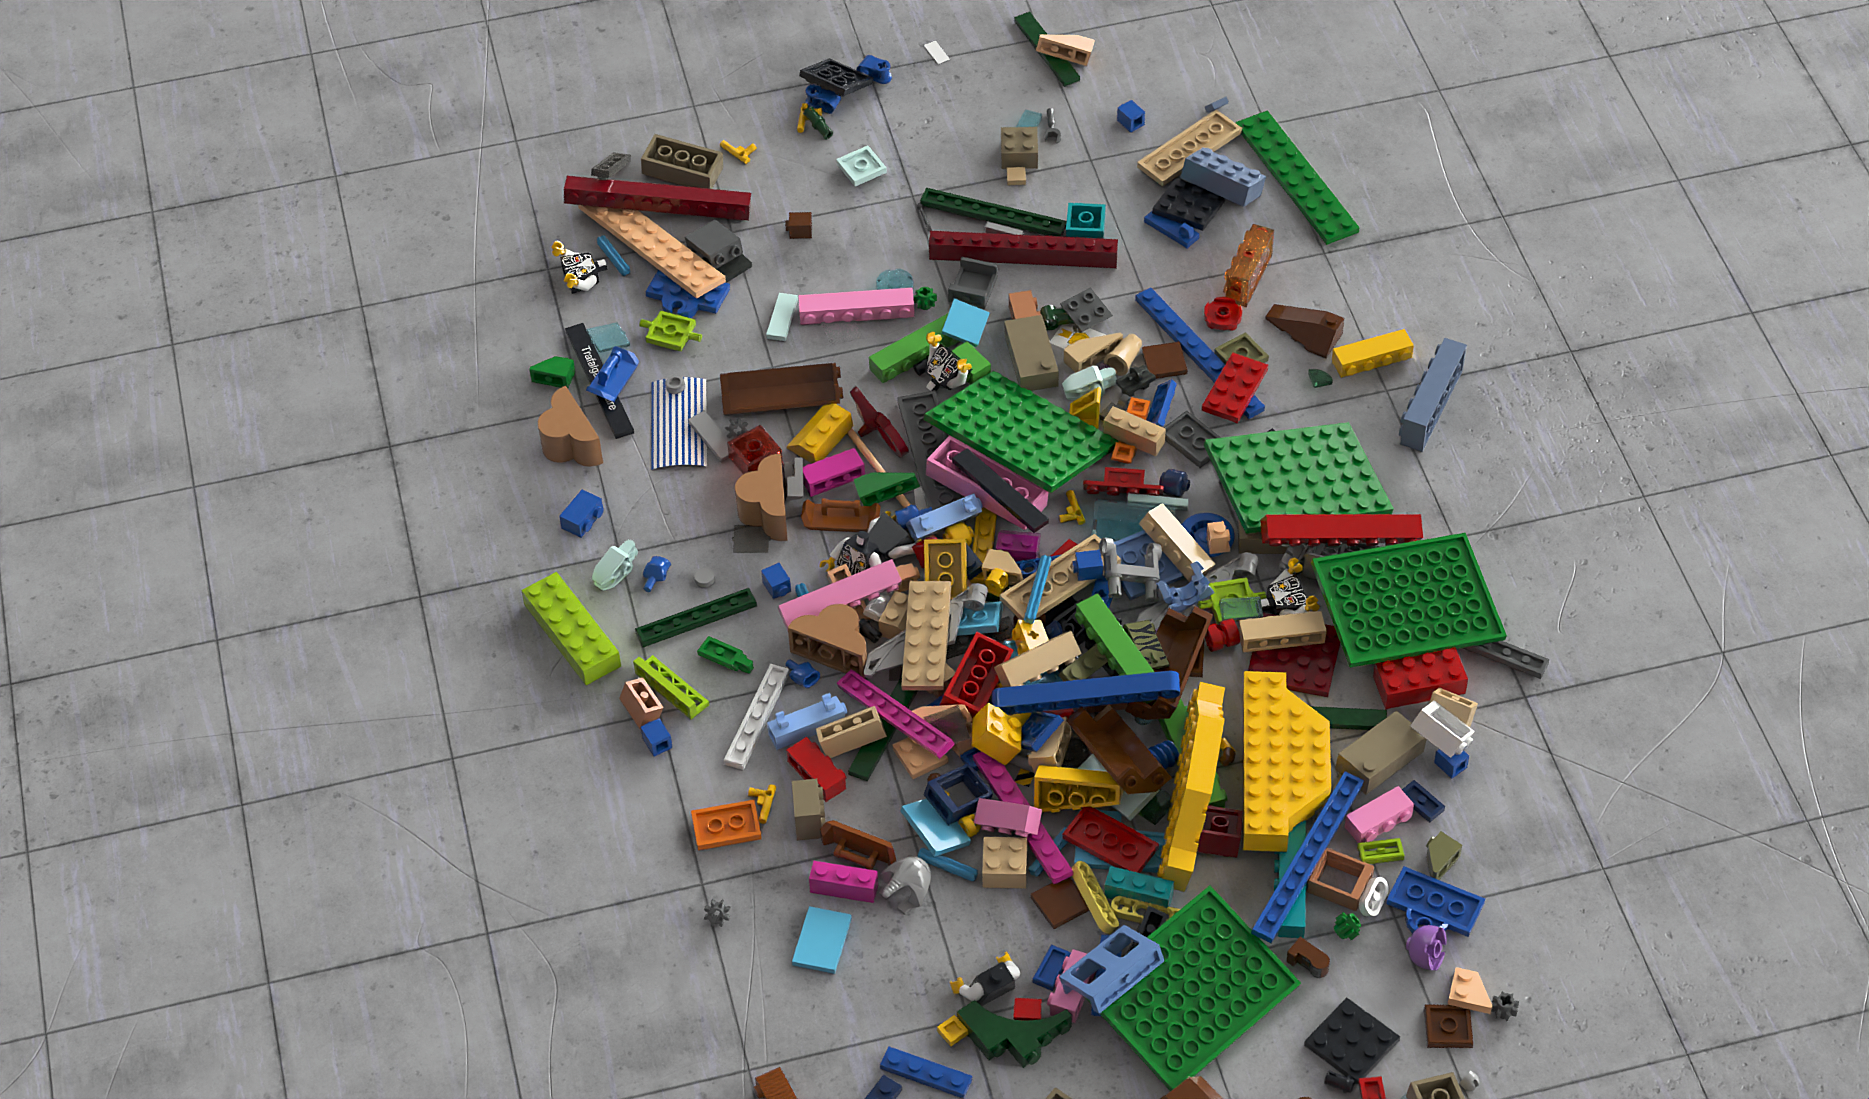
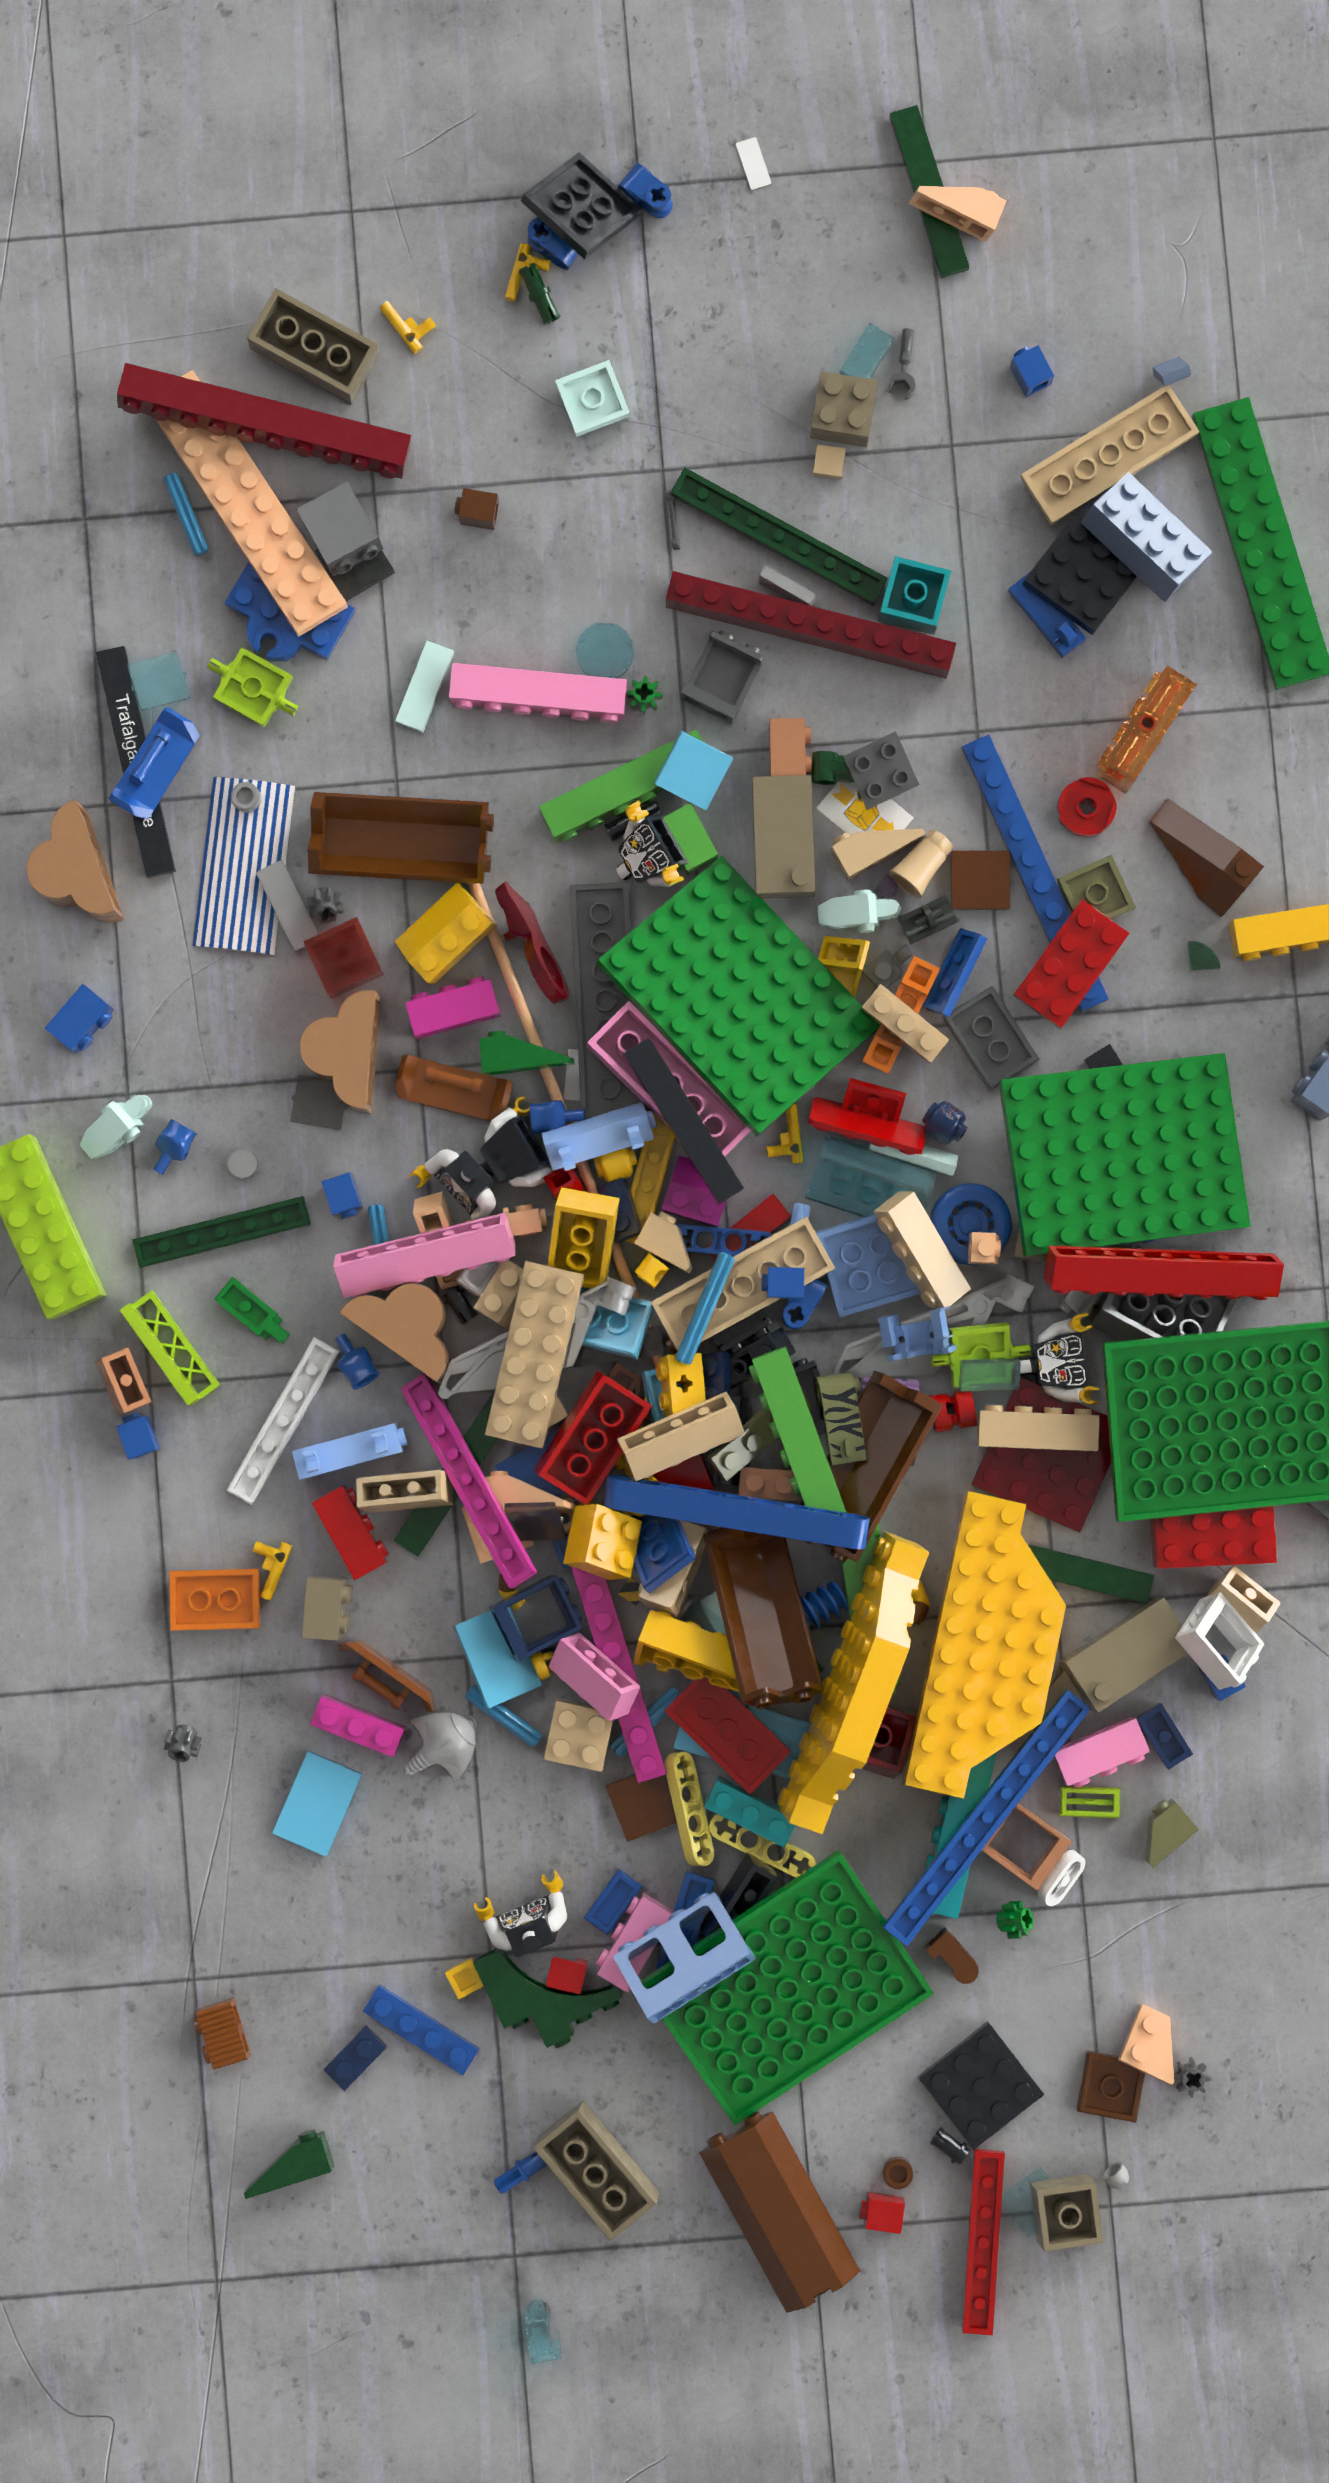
camera: 15 degrees right, 35 degrees up
(553, 372) = (71, 738): green slope -> none
(578, 268) = (128, 540): torso -> none
(610, 165) = (199, 340): clear smoke plate -> none
(793, 479) = (392, 1016): light grey slope -> none
(1119, 572) = (870, 1297): light grey connector -> none
(1426, 947) = (1110, 1974): medium lavender cylinder -> none
(1434, 902) = (1139, 1903): blue plate -> none

